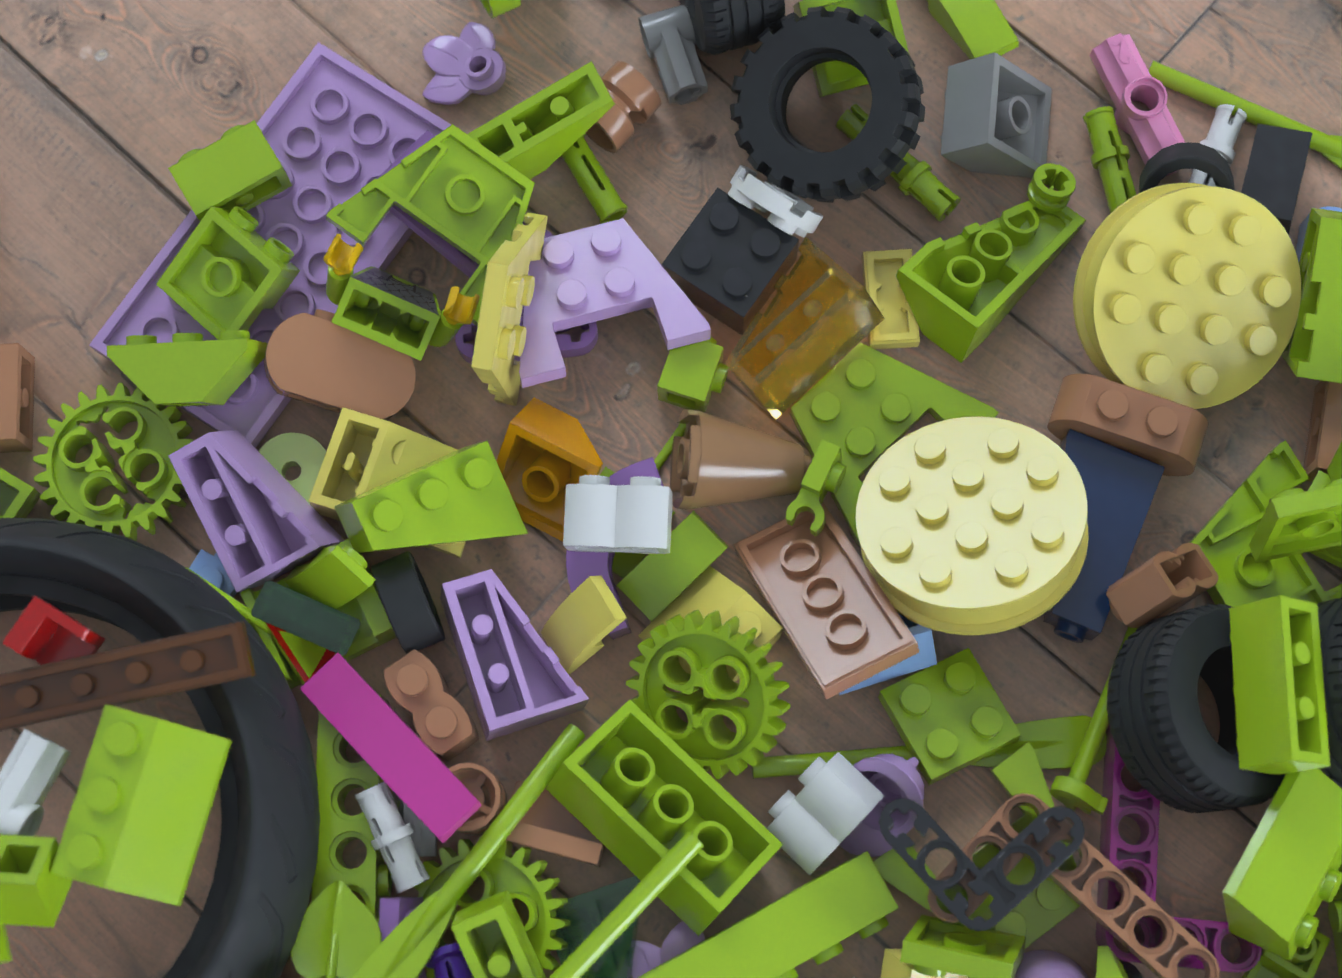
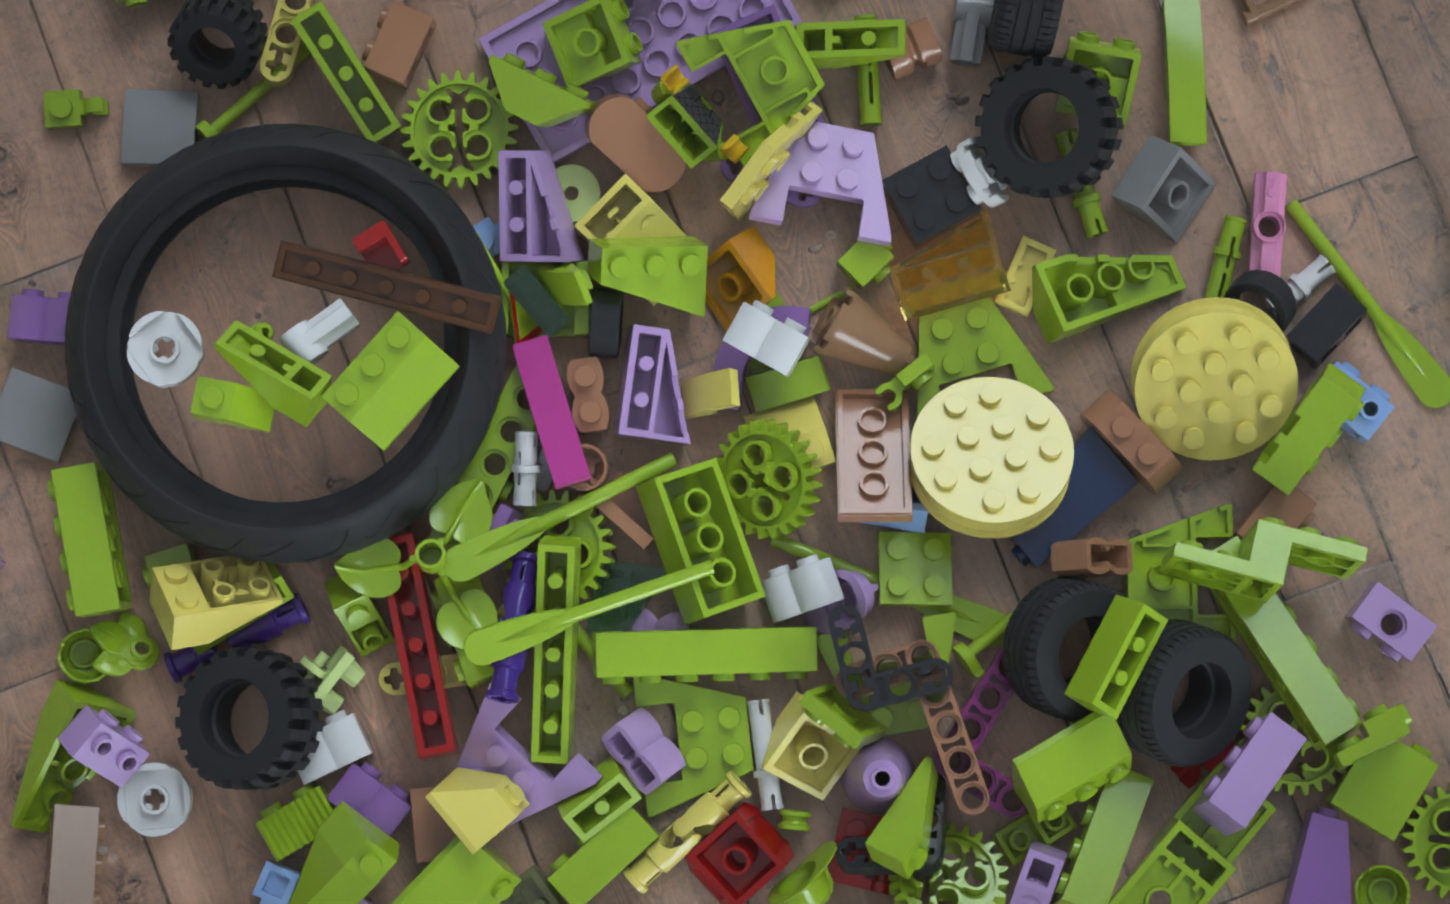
camera: 25 degrees right, 10 degrees up
(1056, 177) = (1182, 247): lime bush -> none

